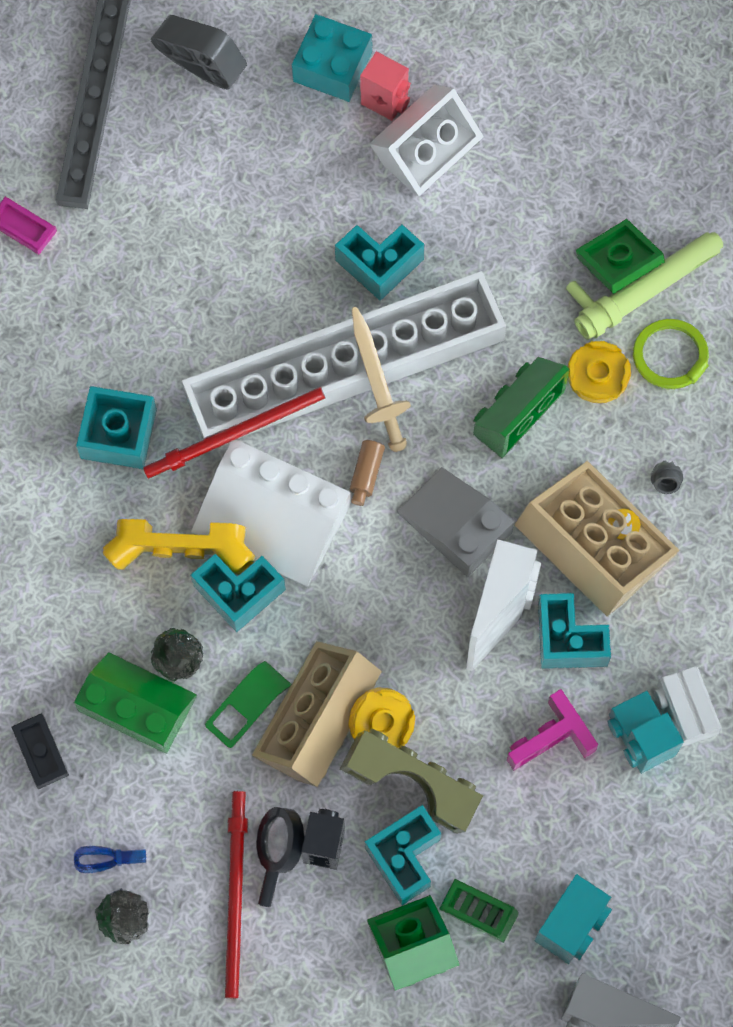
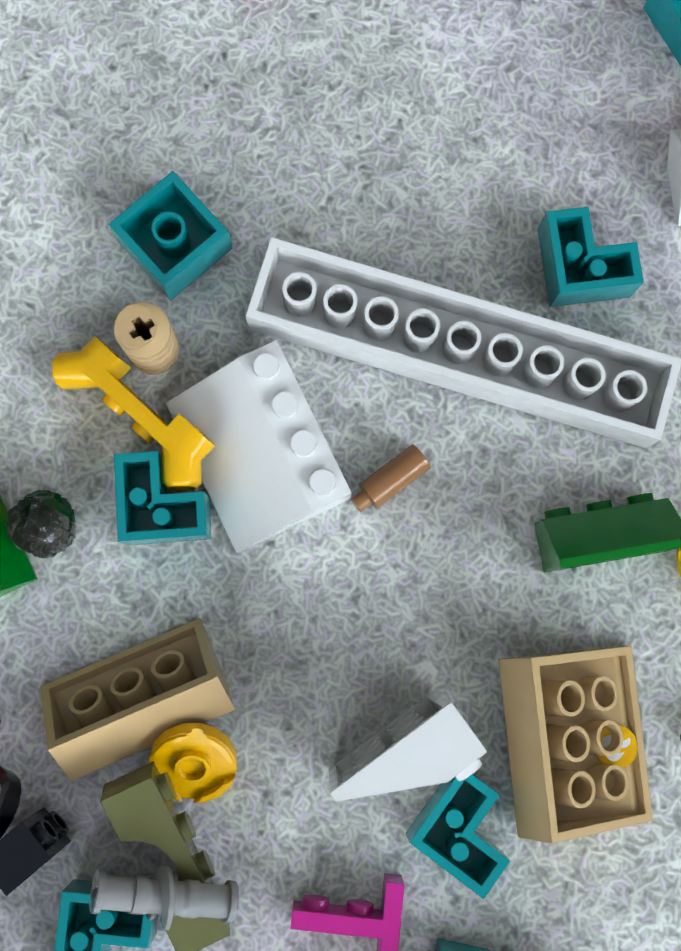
camera: 30 degrees right, 10 degrees up
(153, 496) = (147, 337): none -> tan piece
(176, 458) = (205, 317): red bar -> none
(251, 699) = (86, 627): green piece -> none
(386, 408) = (462, 431): tan sword -> none
(426, 790) = (163, 896): none -> light grey piece
(457, 520) = (443, 604): light grey slope -> none

